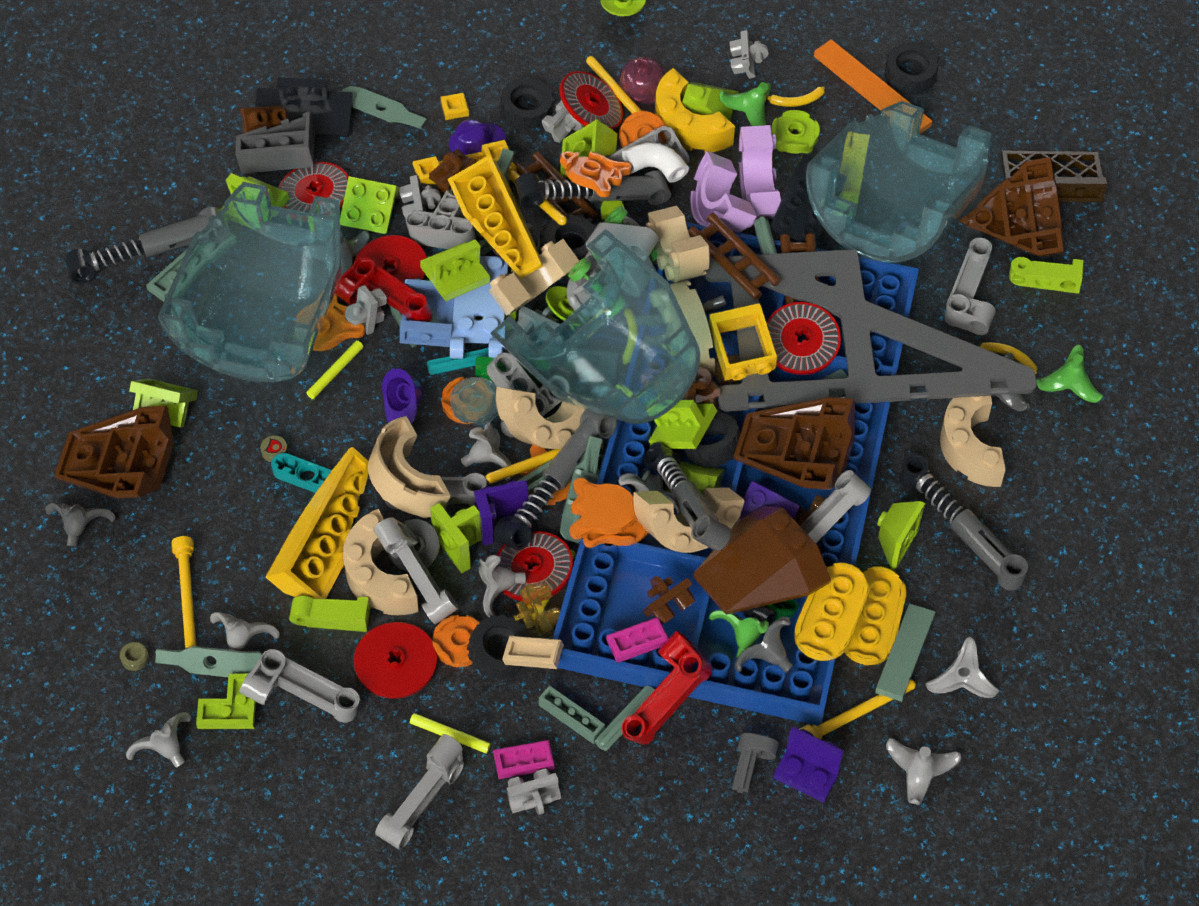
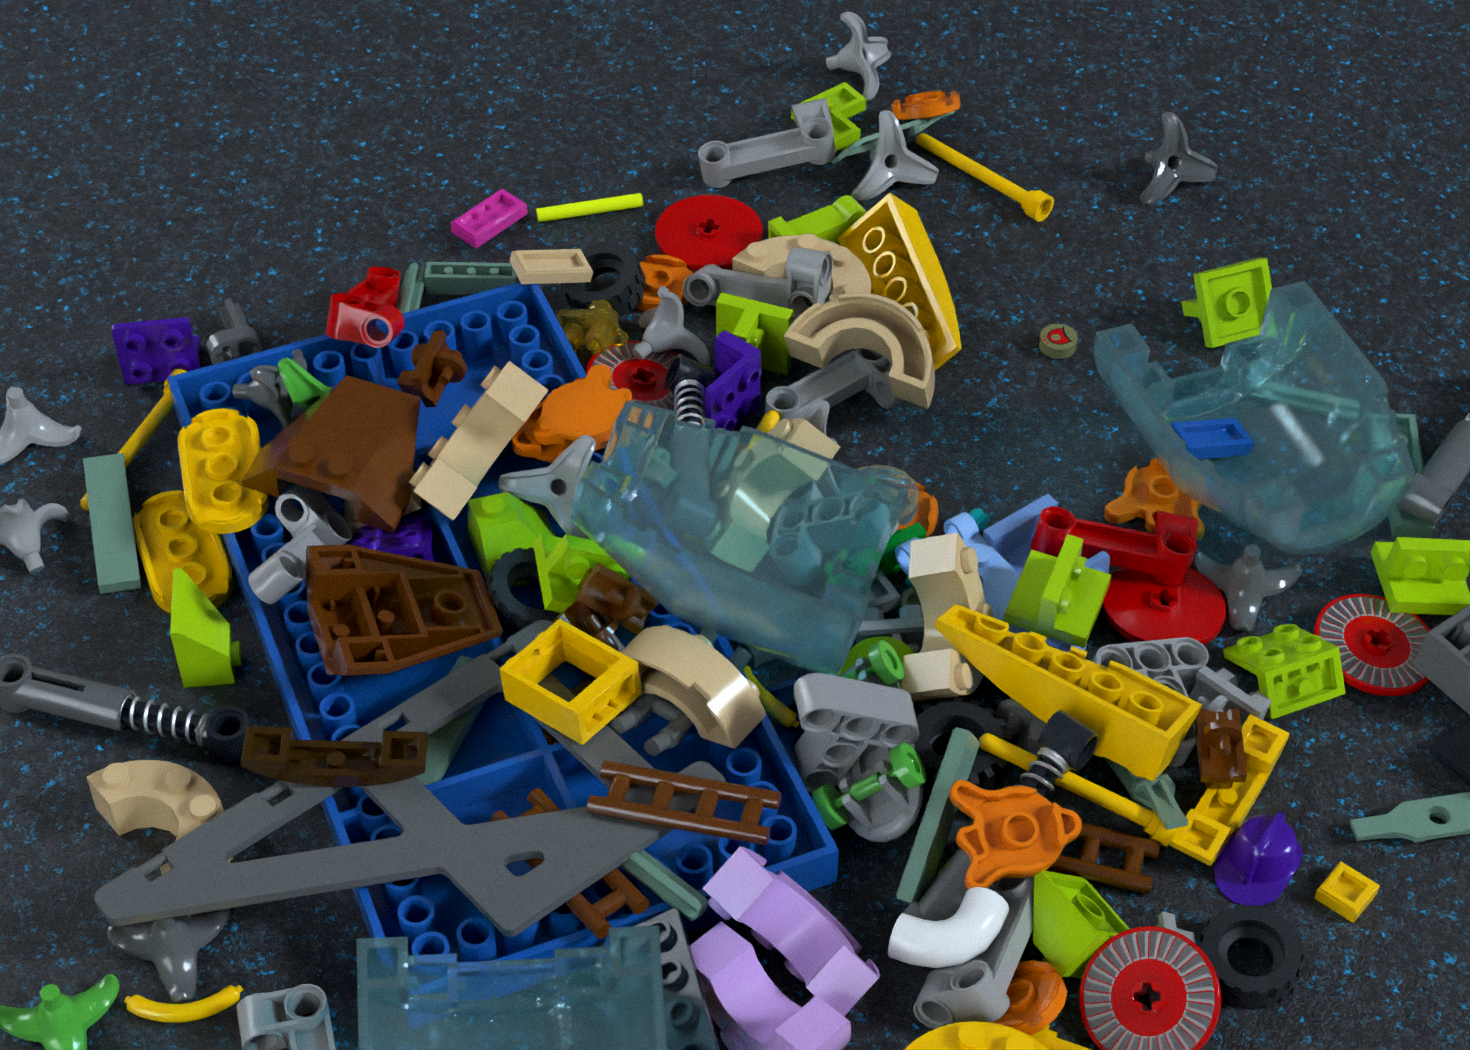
camera: 145 degrees right, 10 degrees down
(120, 454) = (1194, 228): reddish brown wedge -> none
(134, 656) = (974, 111): olive tile -> none
(168, 665) = (926, 105): none -> orange tile
(271, 323) = (1214, 438): none -> blue tile
(299, 466) = (1023, 334): teal beam -> none
(335, 369) = (1090, 457): neon yellow bar -> none
(367, 309) = (1122, 504): light grey hips -> none
(401, 395) = (972, 462): dark purple piece -> none
(443, 766) = (564, 158): light grey piece -> none
(533, 793) = (447, 190): light grey hips -> none
(602, 207) = (937, 818): none -> sand green tile
(637, 639) = (442, 312): dark pink plate -> none
(677, 252) = (754, 754): tan brick -> none
(695, 509) = (420, 393): dark grey piece -> none
(821, 340) = (470, 768): piece -> none
(880, 379) = (334, 763): none -> dark brown slope

